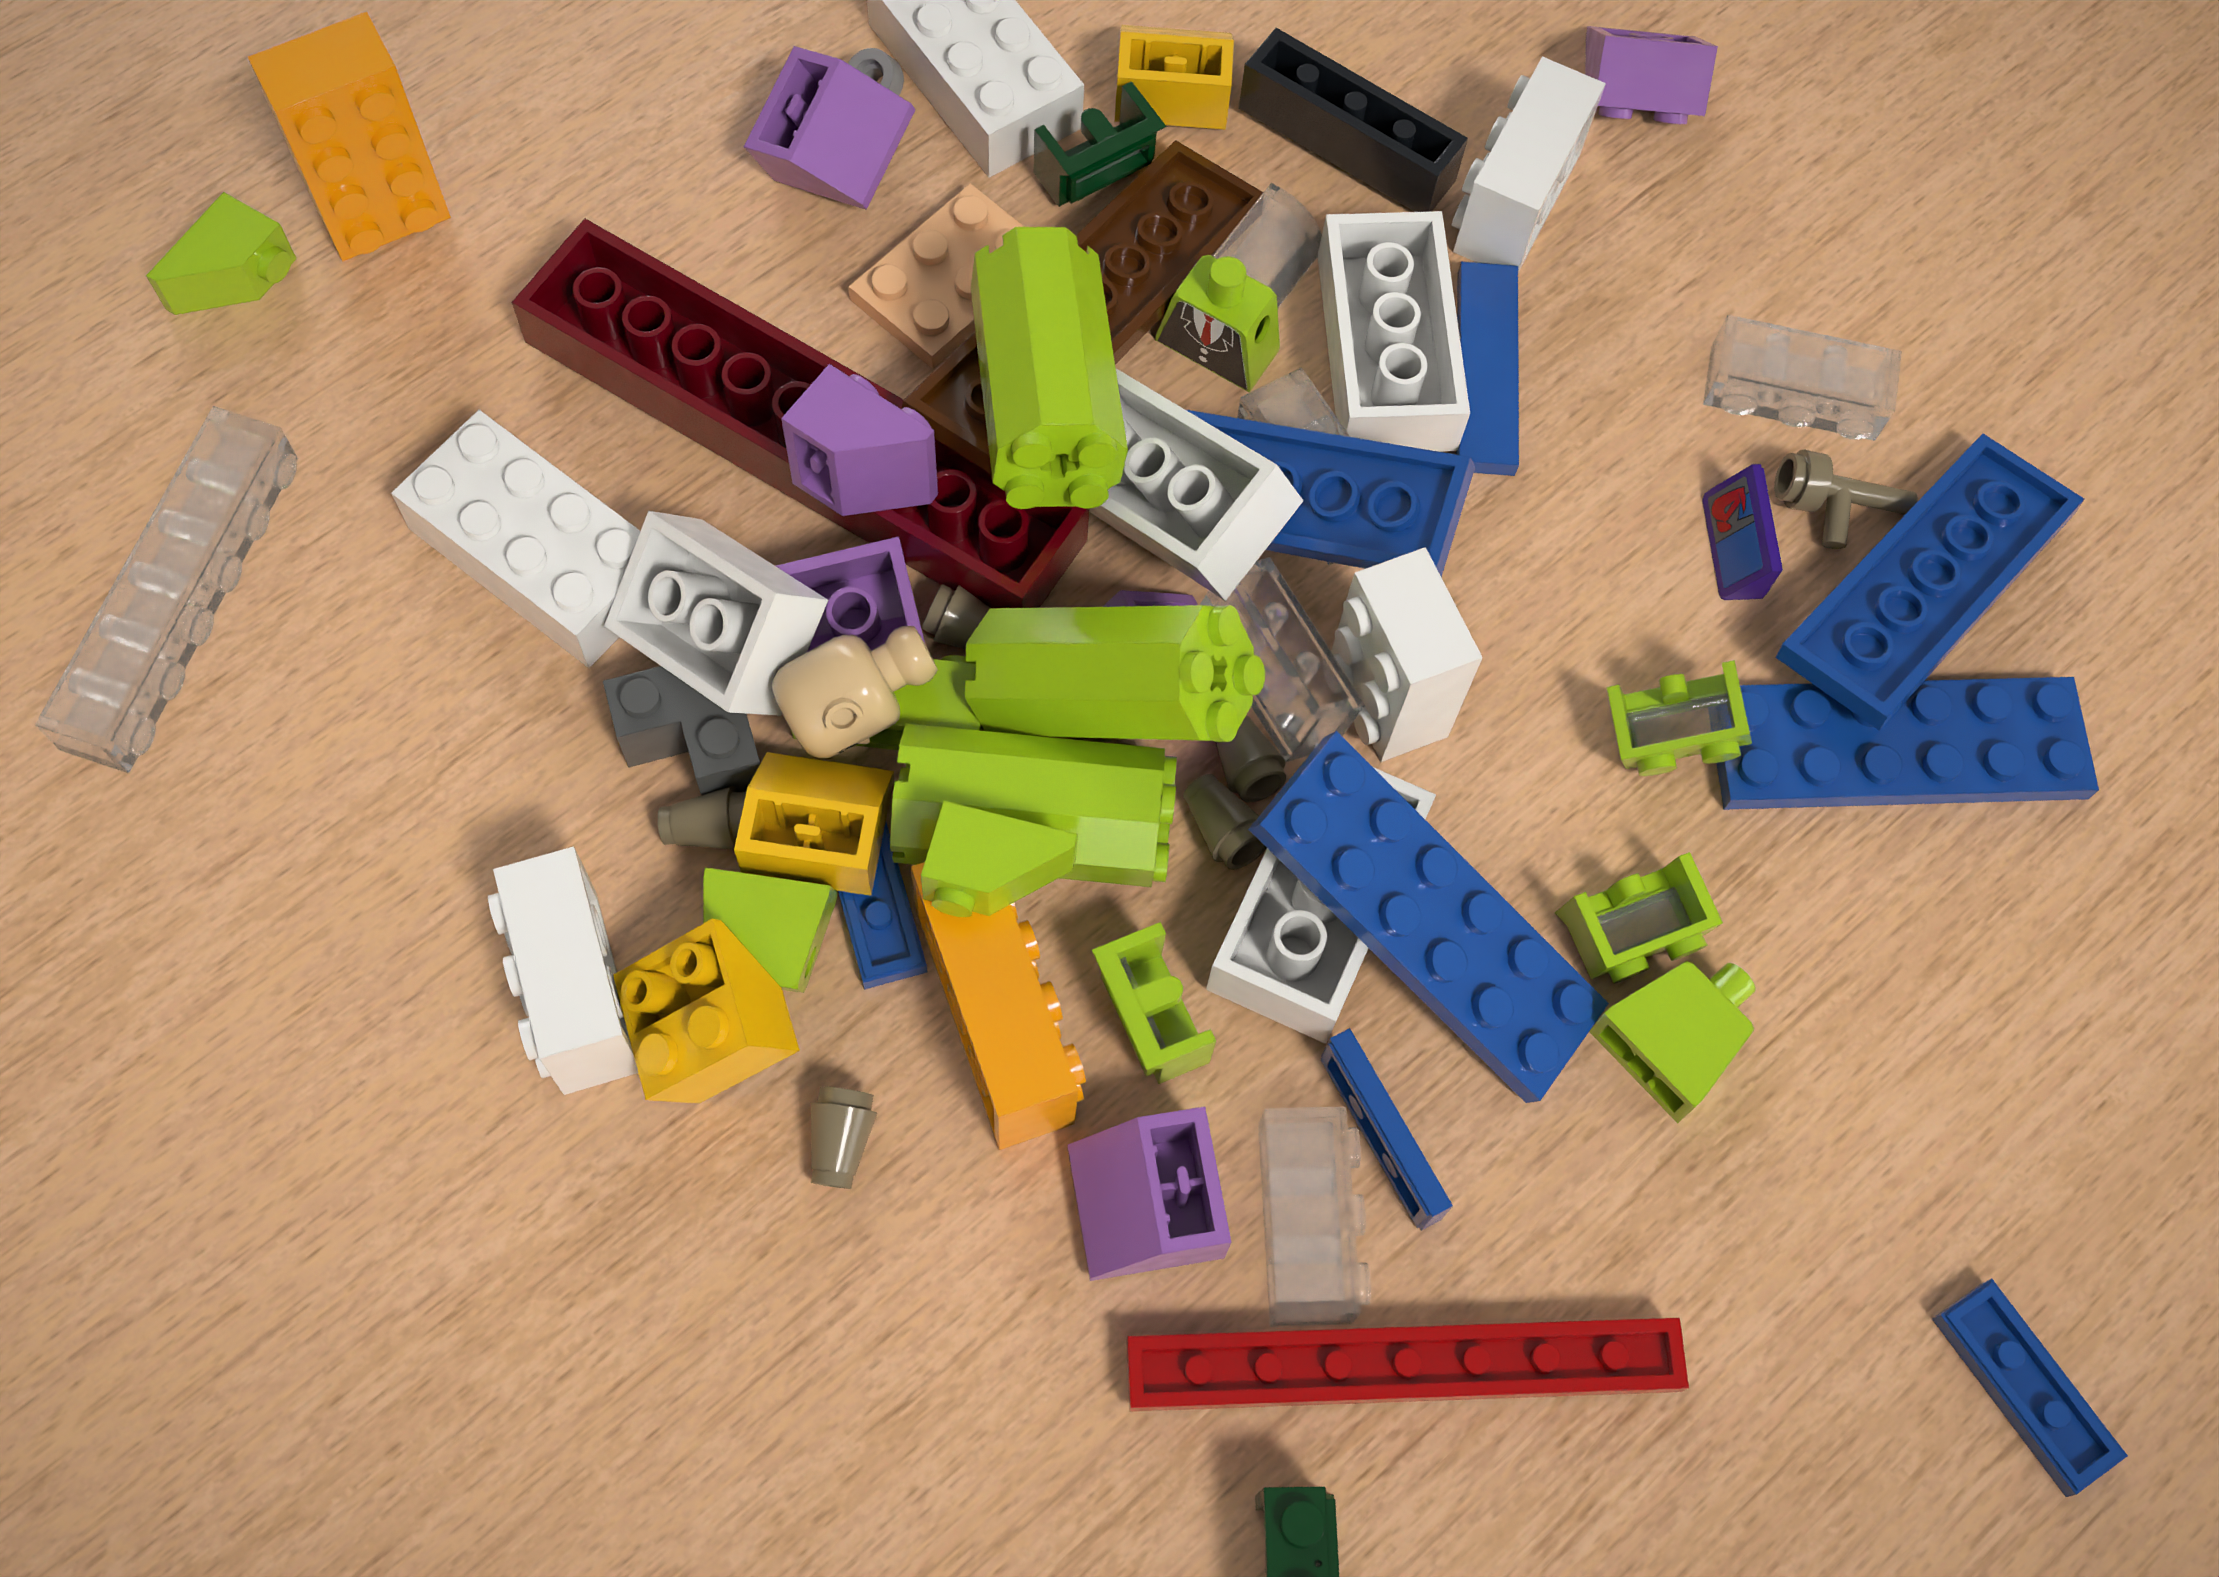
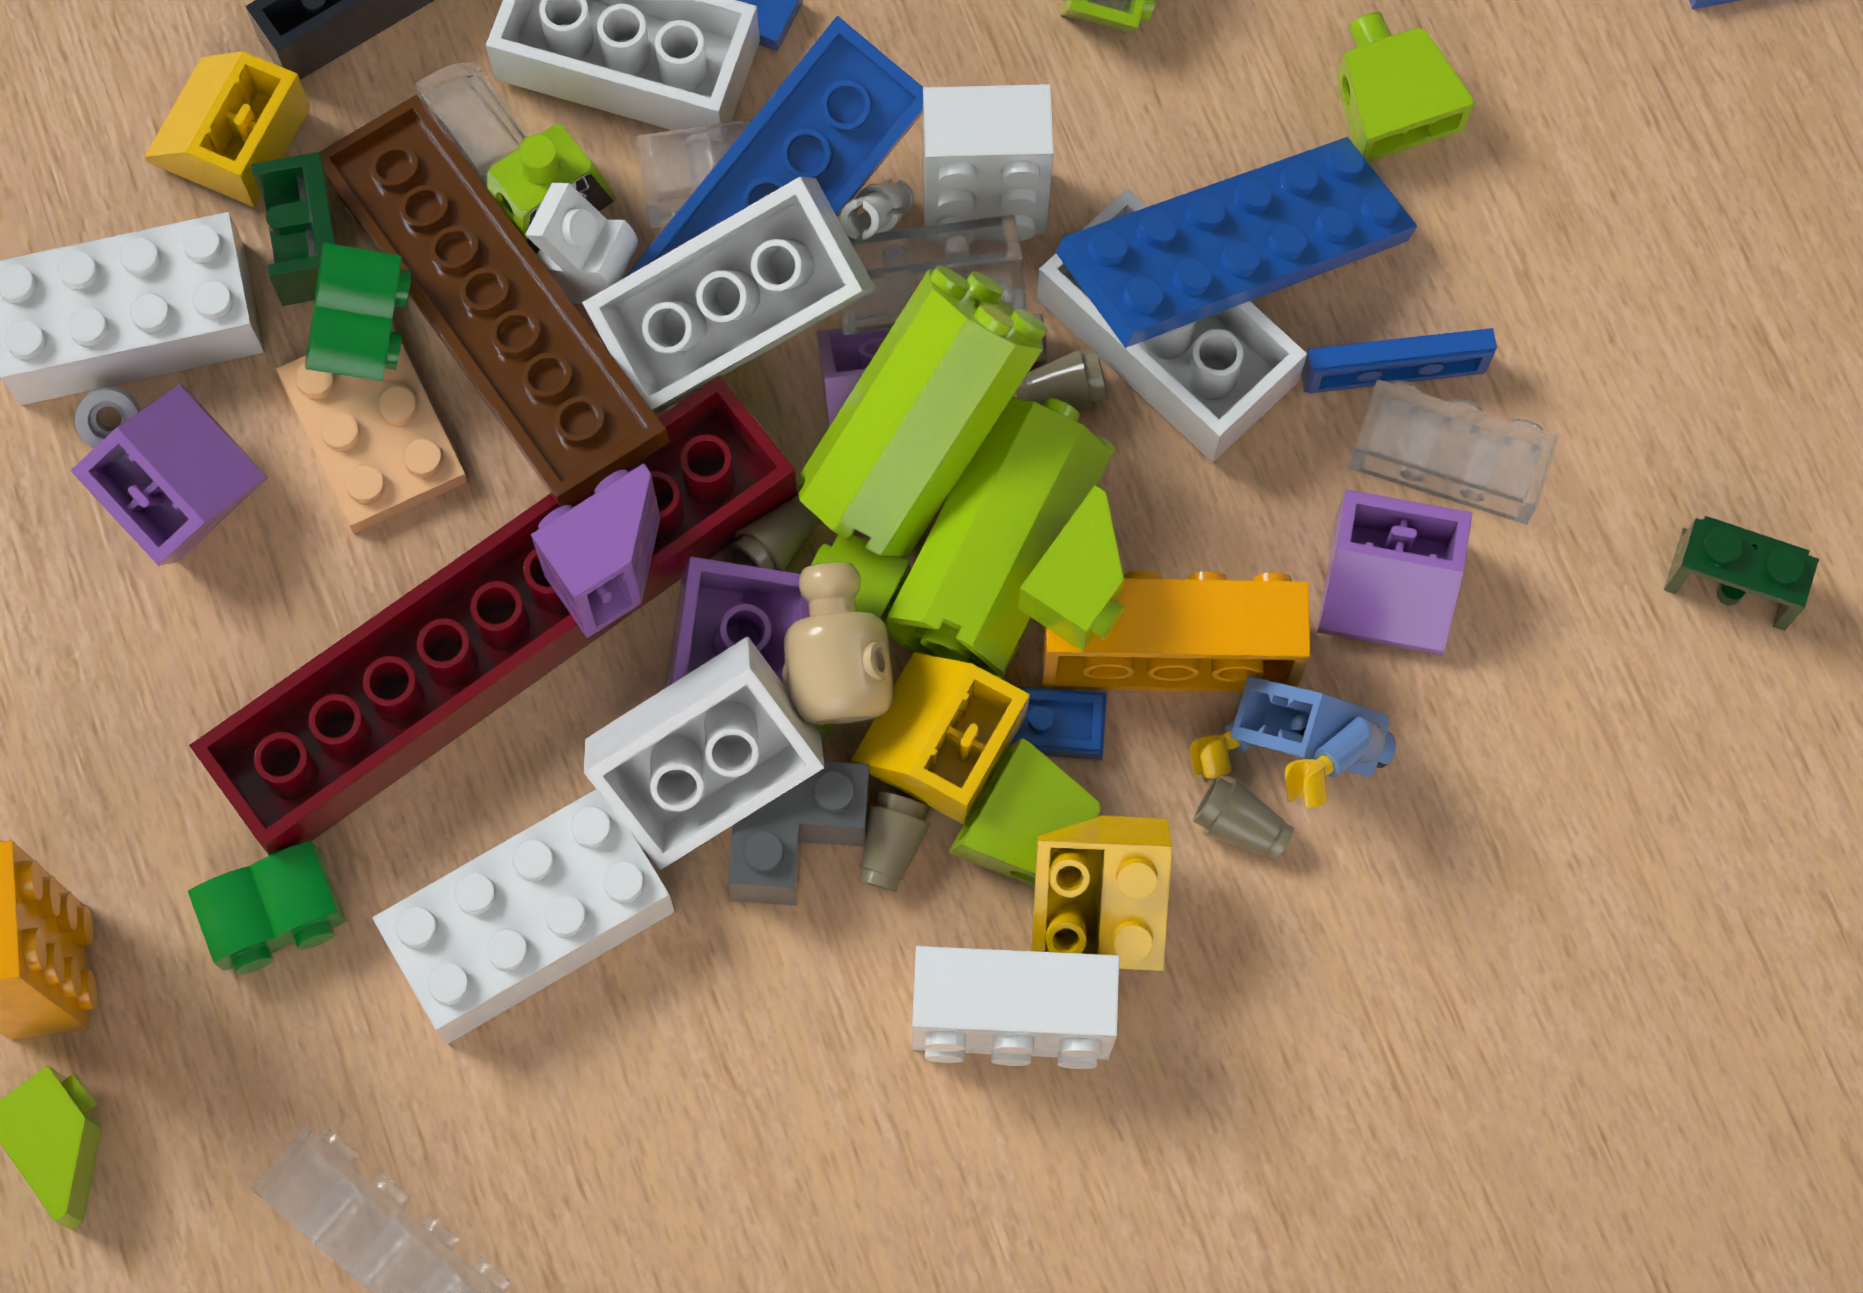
camera: 65 degrees left, 5 degrees up
(478, 342) = (267, 907): none -> green brick
(934, 1158) = (1303, 724): none -> medium blue torso
(1030, 191) = (355, 312): none -> green brick
(1047, 370) = (597, 345): lime brick -> none
(1152, 1005) = (1227, 509): lime window -> none
(1171, 346) = (579, 243): none -> white brick
(1318, 586) = (877, 208): none -> white pin
(1405, 1364) = (1600, 430): red plate -> none
(1641, 919) = (1283, 77): lime window -> none

